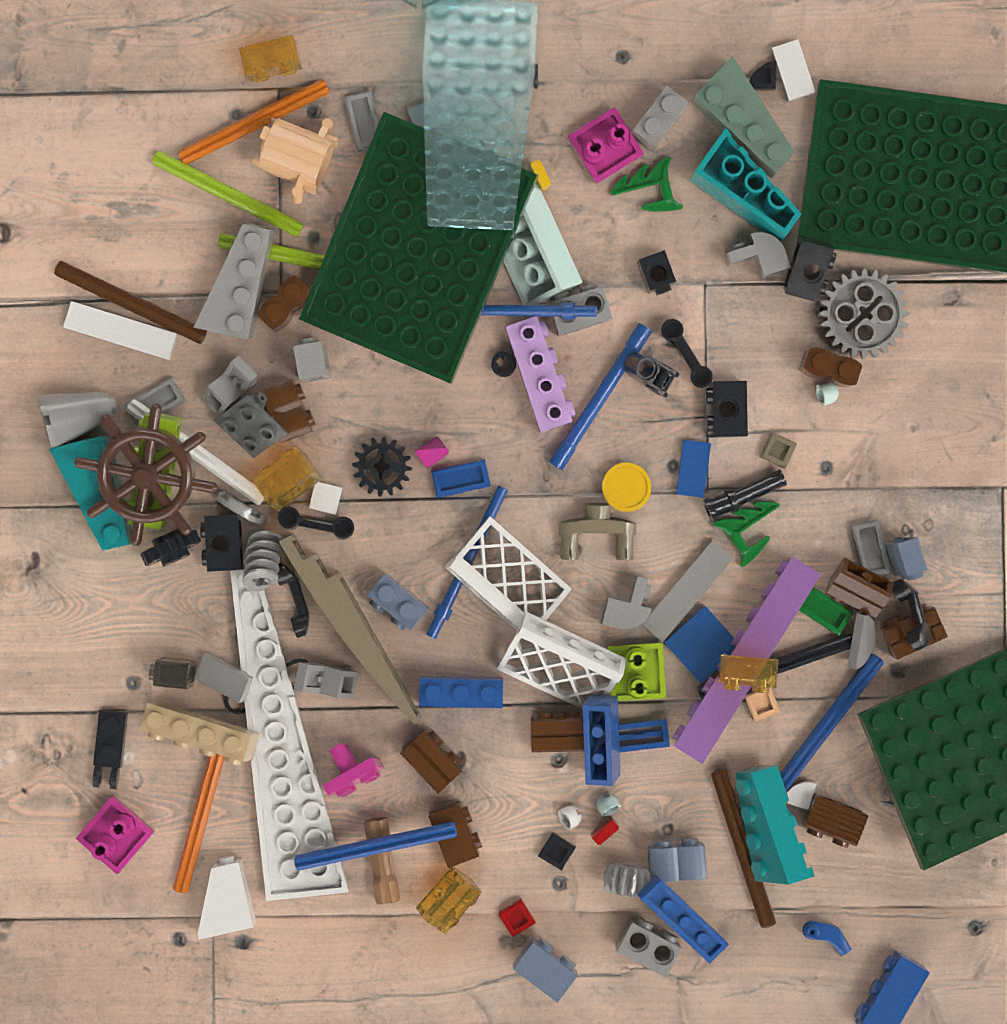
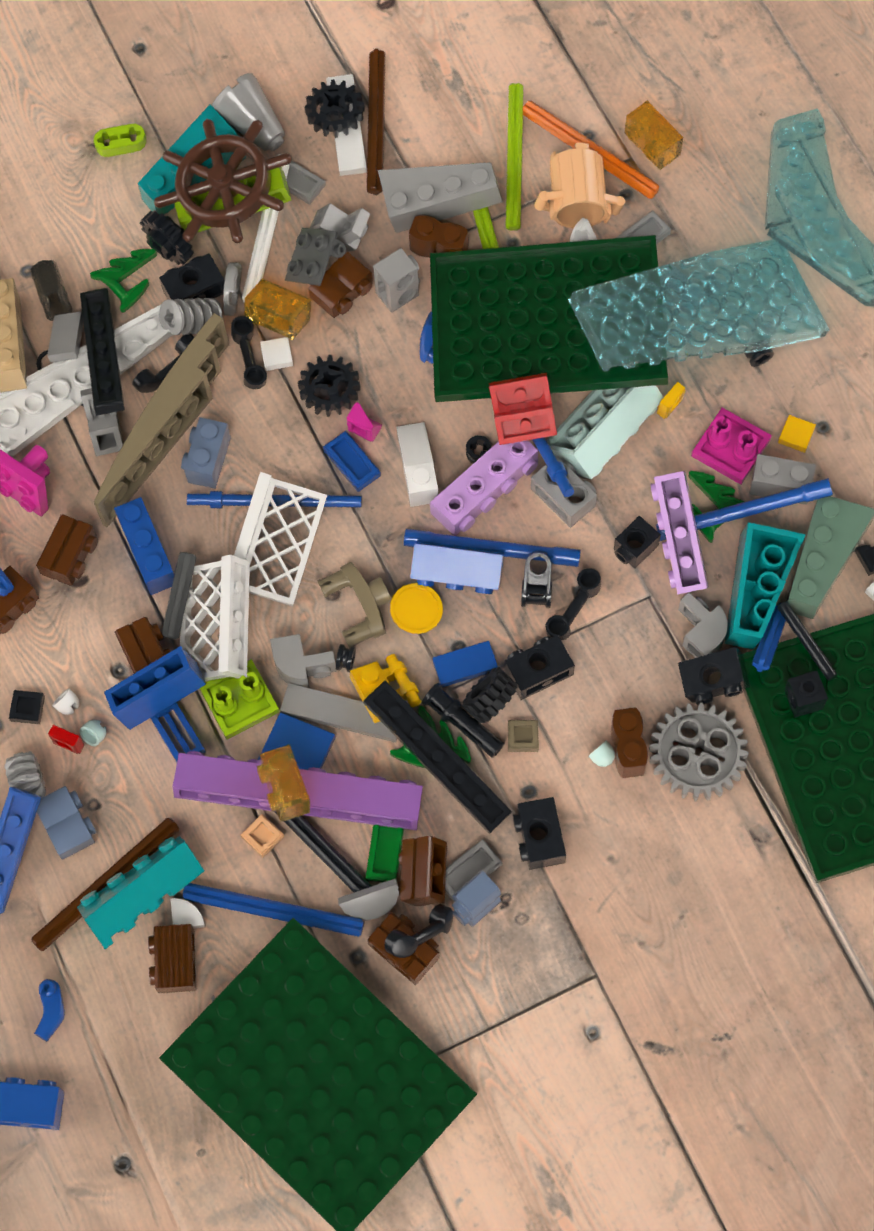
camera: 65 degrees right, 20 degrees down
(44, 546) = (120, 140): none -> lime beam
(116, 331) = (334, 109): none -> black gear
(177, 609) = (126, 266): none -> green piece
(260, 654) = (102, 352): none -> black tile
(342, 174) = (582, 231): none -> white tile
(380, 361) = (426, 341): none -> blue arm
(490, 423) = (417, 464): none -> white slope
(500, 312) = (523, 408): none -> slope
(522, 683) = (178, 595): none -> dark grey axle
(607, 435) = (457, 567): none -> brick
(619, 82) = (796, 433): none -> yellow tile
(643, 566) = (345, 658): none -> black bush
(674, 232) = (680, 531): none -> lavender brick
(685, 554) = (370, 676): none -> yellow plate
(691, 108) = (805, 493): none -> blue piece
(739, 463) = (489, 695): none -> black tyre
(768, 532) = (437, 756): none -> black tile
(808, 211) = (769, 641): none -> blue axle
(815, 175) = (807, 641): none -> black bar
(865, 202) = (805, 694): none -> black brick
(888, 478) = (541, 815): none -> black brick

